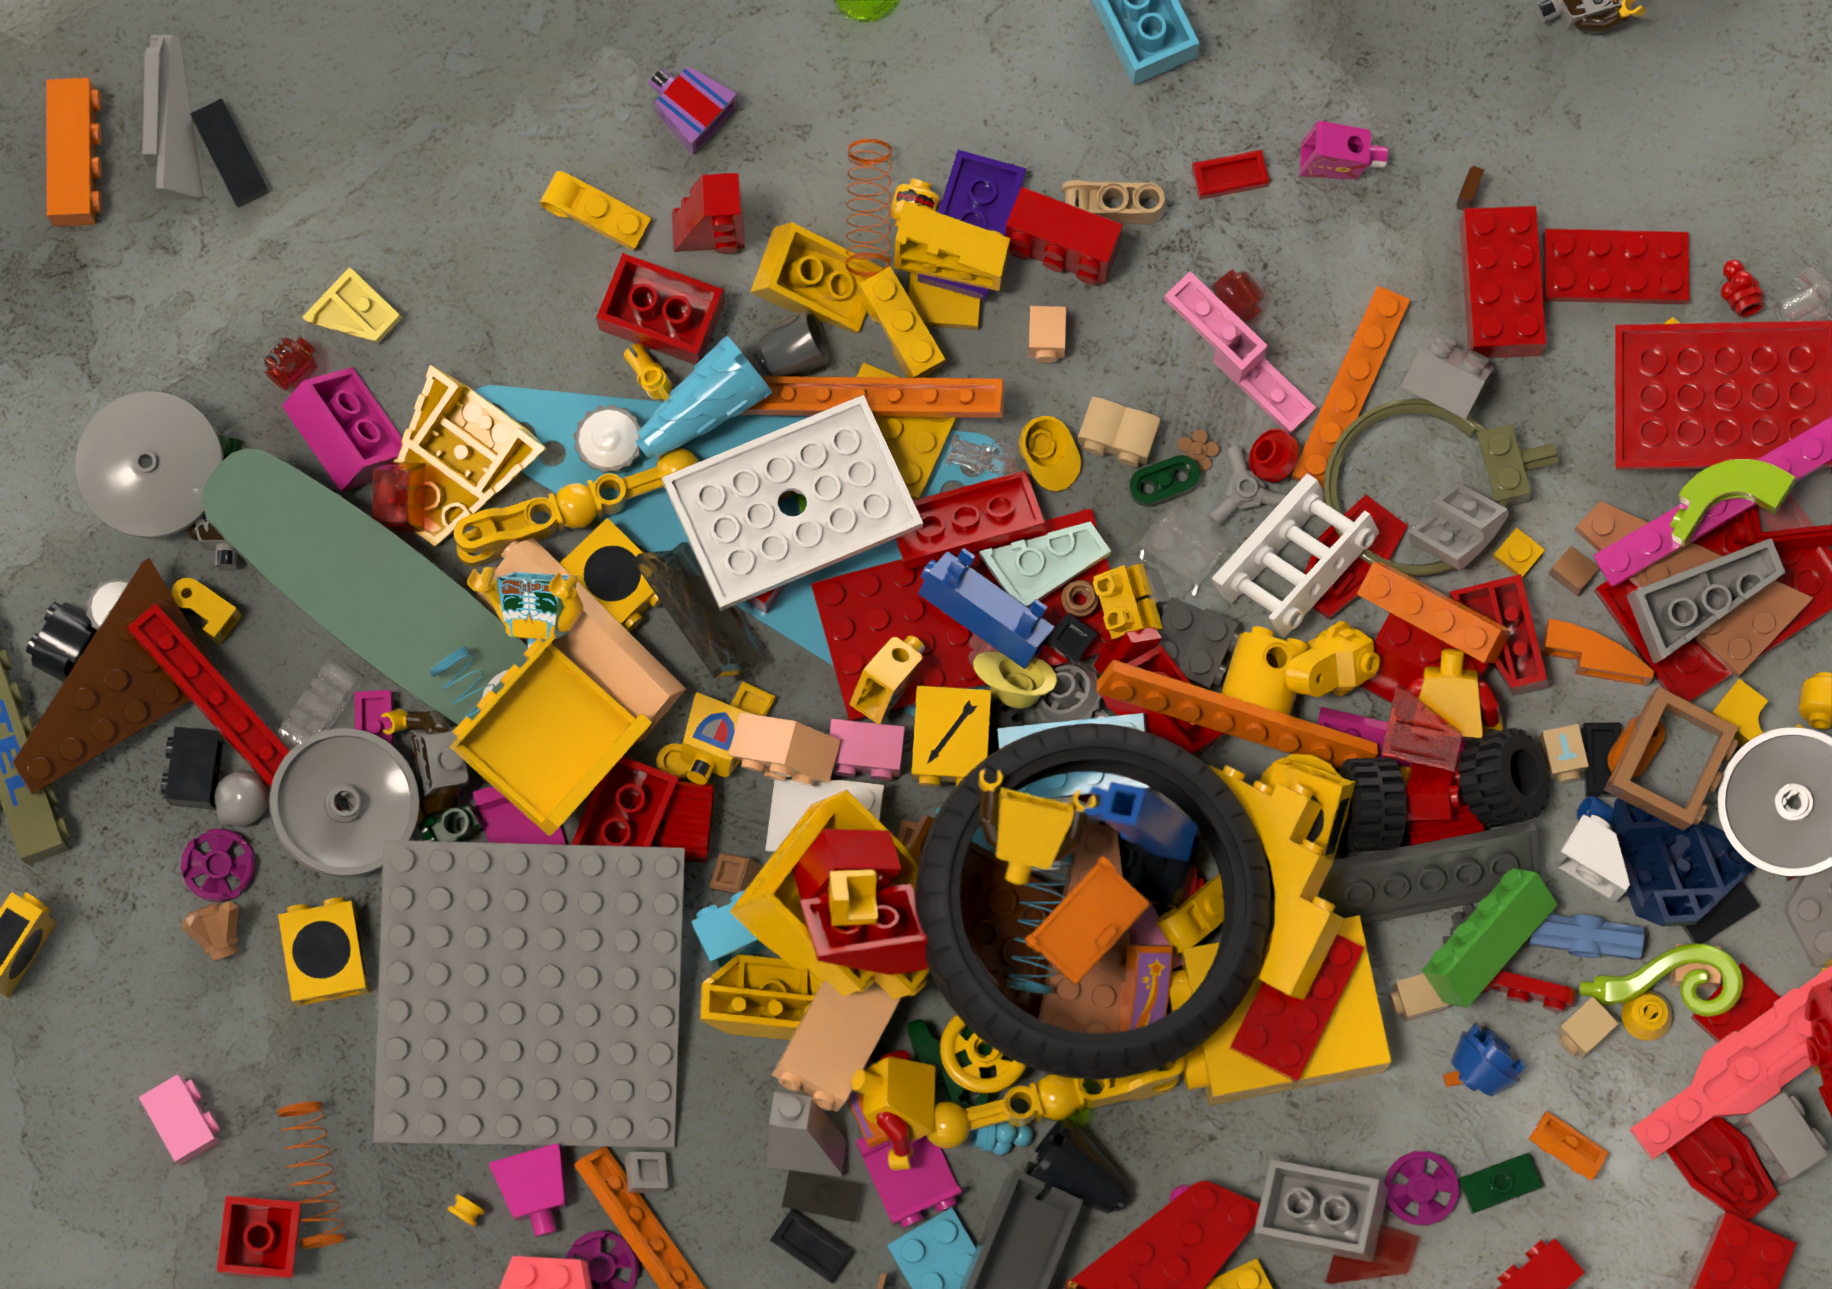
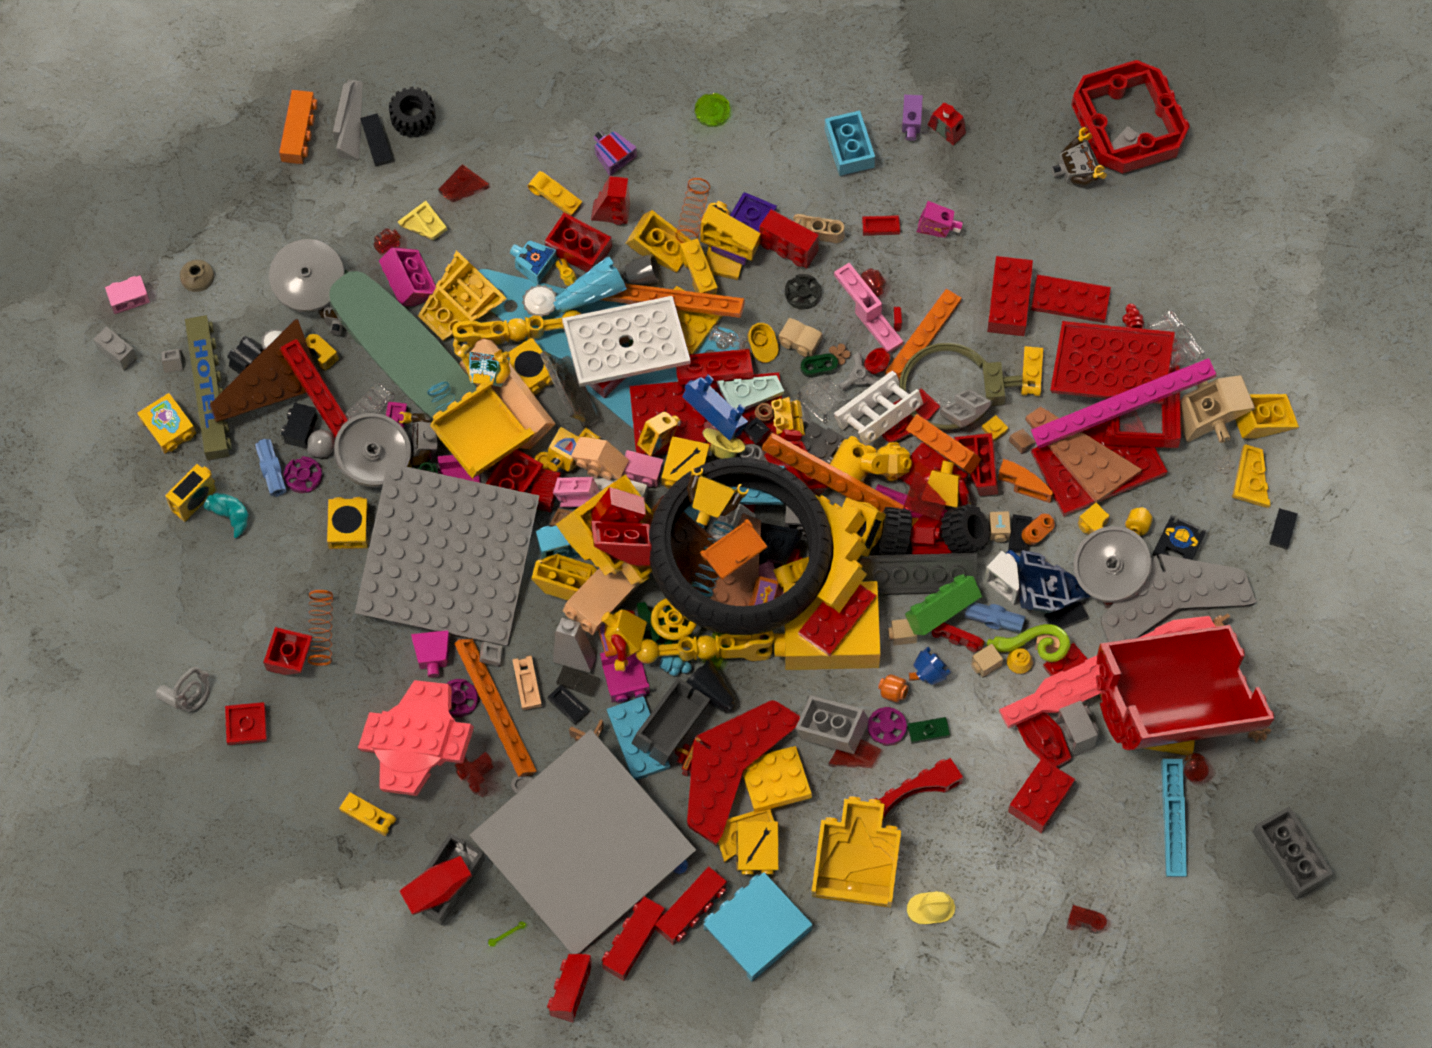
camera: 10 degrees right, 10 degrees down
(92, 960) = (230, 507): none -> teal animal
(153, 863) = (270, 467): none -> medium blue piece
(180, 1119) = (259, 591): bright pink brick -> none
(214, 929) = (295, 502): medium nougat rock -> none
(283, 60) = (412, 124): none -> black tyre
(399, 496) = (429, 310): clear red torso -> none
(413, 218) = (462, 184): none -> clear red wing
(466, 1210) = (395, 658): yellow bush -> none
(580, 355) = (533, 260): none -> medium azure torso
(726, 1218) = (527, 683): none -> light nougat plate
(750, 820) = (575, 490): none -> bright pink hinge
(853, 897) = (618, 521): yellow panel -> none
(1047, 333) = (772, 285): light nougat brick -> none
(1106, 334) = (802, 291): none -> pearl dark grey piece
(1145, 820) = (770, 498): blue brick -> none
(1296, 363) = (897, 319): none -> red tile
(1421, 1113) = (893, 688): none -> orange head
(1448, 375) = (972, 334): light grey brick -> none
(1469, 188) = (1002, 248): reddish brown tile -> none
(1568, 1145) = (968, 717): orange plate -> none
(1569, 425) = (1032, 370): none -> yellow plate
(1619, 781) = (1038, 552): medium nougat window -> none
(1691, 601) = (1081, 455): light grey wedge -> none
(1727, 480) = (1103, 399): lime arch -> none

